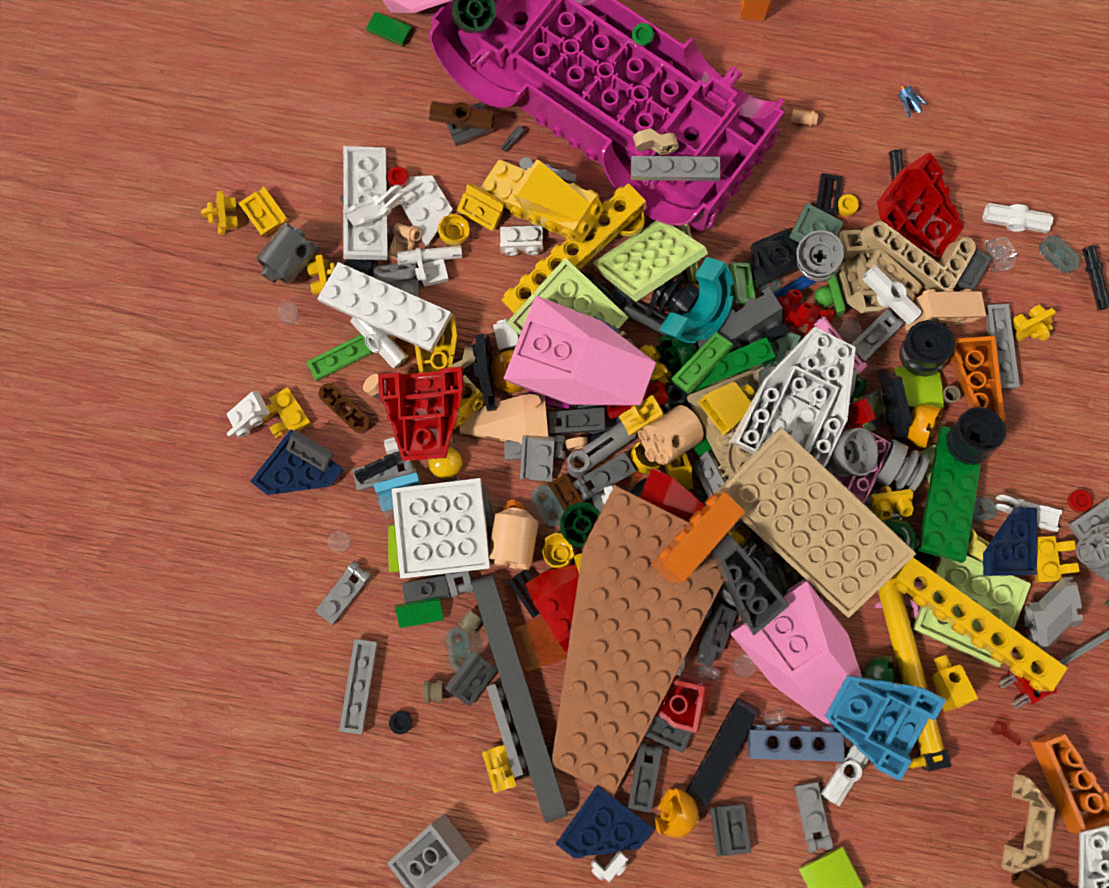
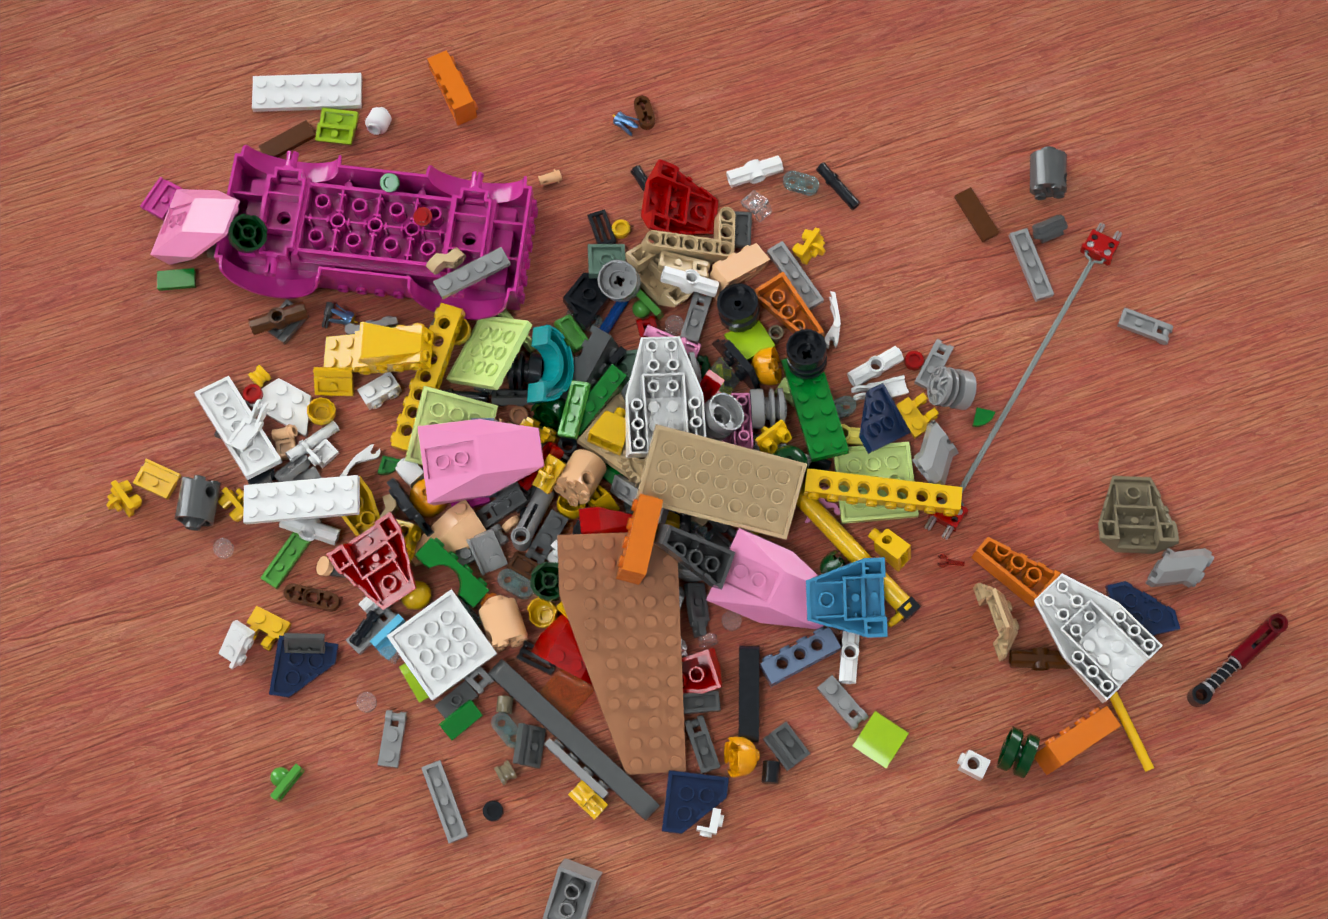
camera: 30 degrees left, 5 degrees down
(218, 575) = (284, 780): none -> bright green tile
(414, 164) = (259, 376): none -> yellow wheel
(469, 296) = (363, 456): none -> white arm
(482, 433) = (470, 588): none -> green arch
(488, 318) = (387, 465): none -> green tile
(530, 151) = (349, 317): none -> flat silver piece
(642, 337) = (517, 414): none -> nougat tile
(657, 85) = (422, 216): none -> red plate
(699, 847) = (770, 772): none -> black piece
(774, 716) = (773, 644): clear tile -> none
(794, 312) = (624, 333): red hips -> none
(939, 101) = (641, 113): none -> reddish brown beam
(1022, 413) = (833, 333): none -> white arm
(1025, 485) = (884, 361): none -> white piece

